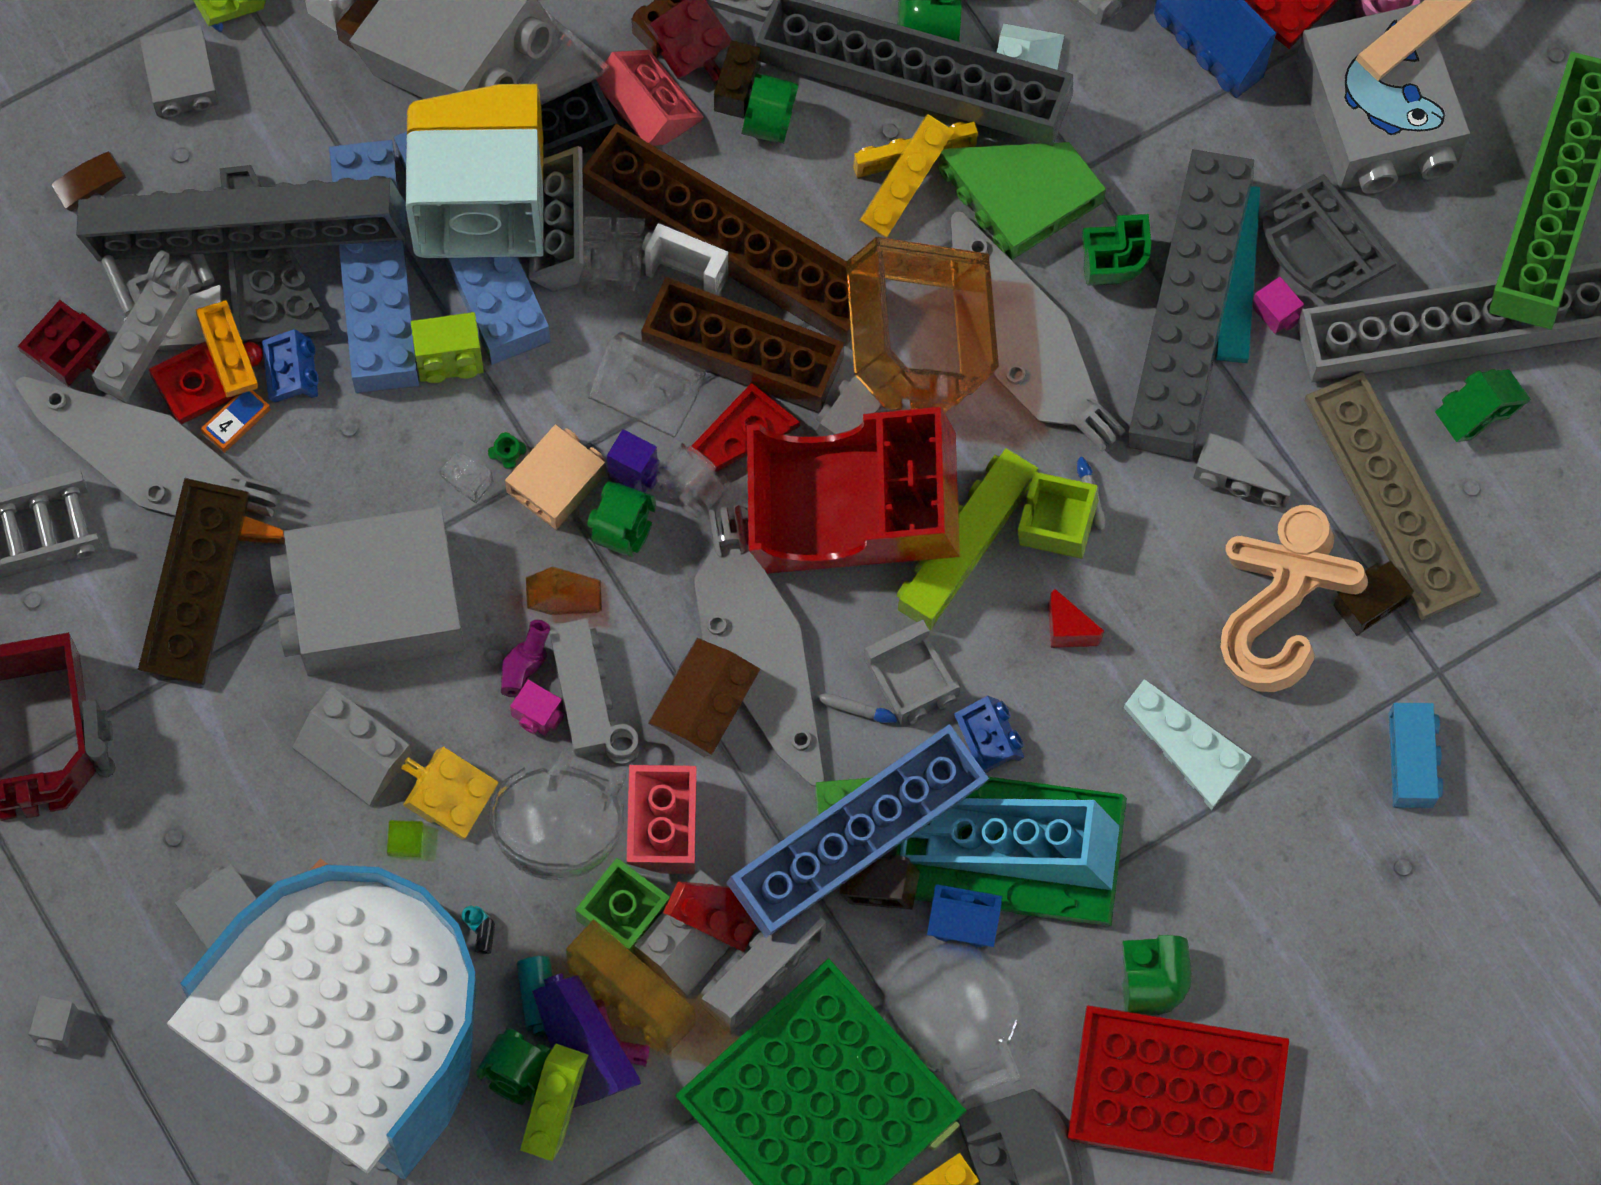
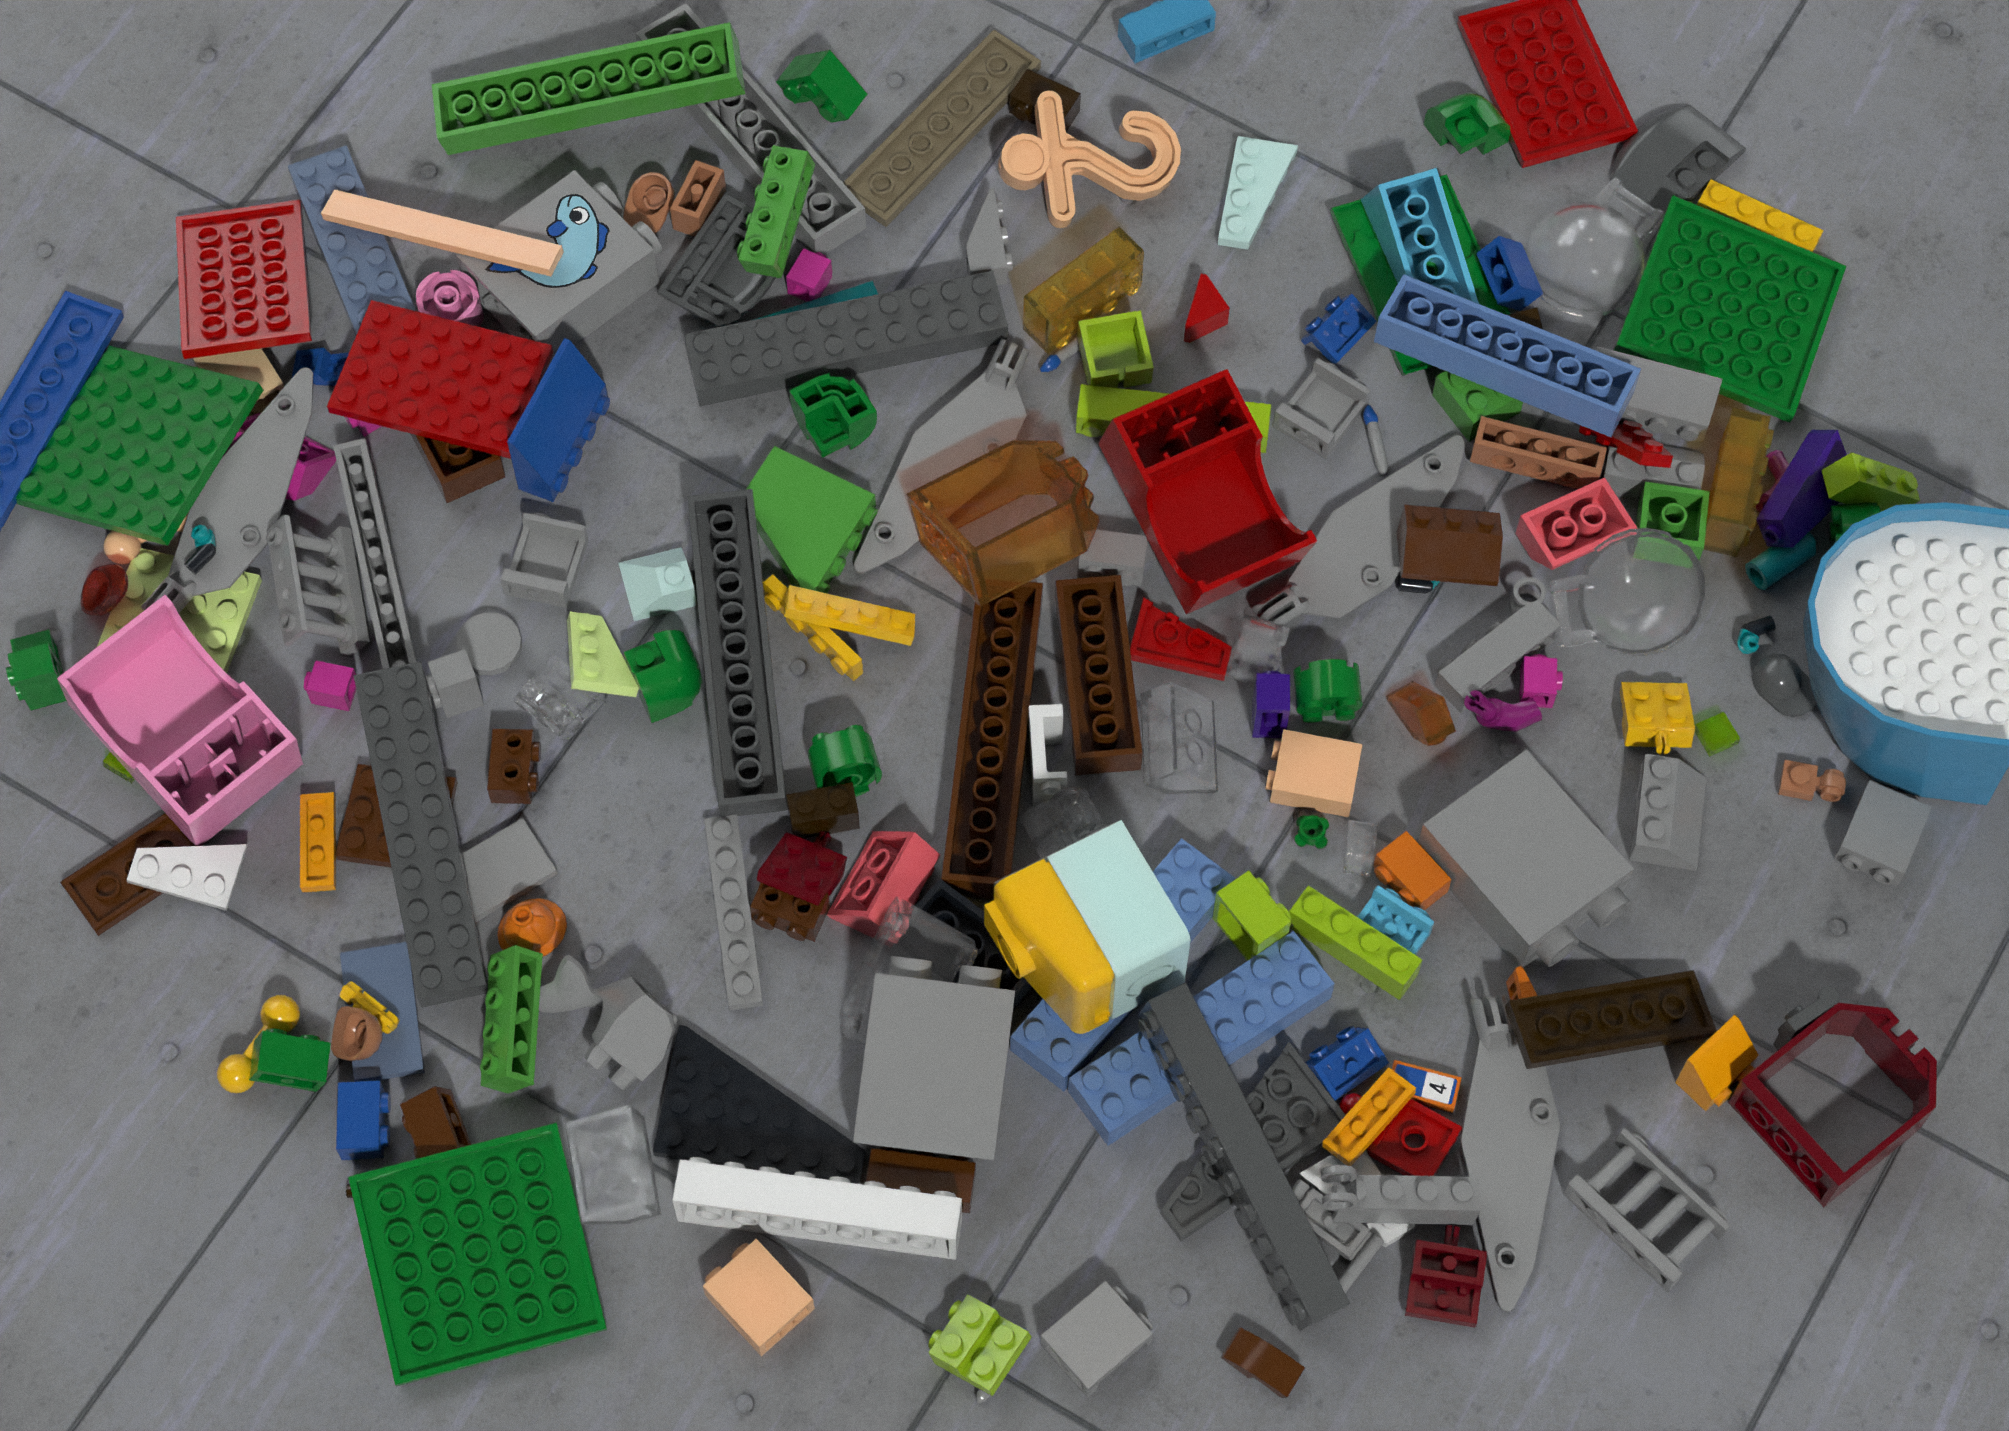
camera: 115 degrees left, 5 degrees down
(105, 648) = (1718, 1065): none -> light orange slope
(383, 465) = (1397, 919): none -> medium azure bracket
(385, 423) = (1354, 942): none -> lime brick
(423, 494) = (1411, 872): none -> orange brick
(759, 827) = (1537, 454): none -> nougat brick
(1137, 519) = (1083, 290): none -> clear yellow brick
(1344, 283) = (776, 211): none -> bright green brick
(1406, 244) = (697, 198): none -> nougat brick
(1424, 208) = (649, 201): none -> nougat cap

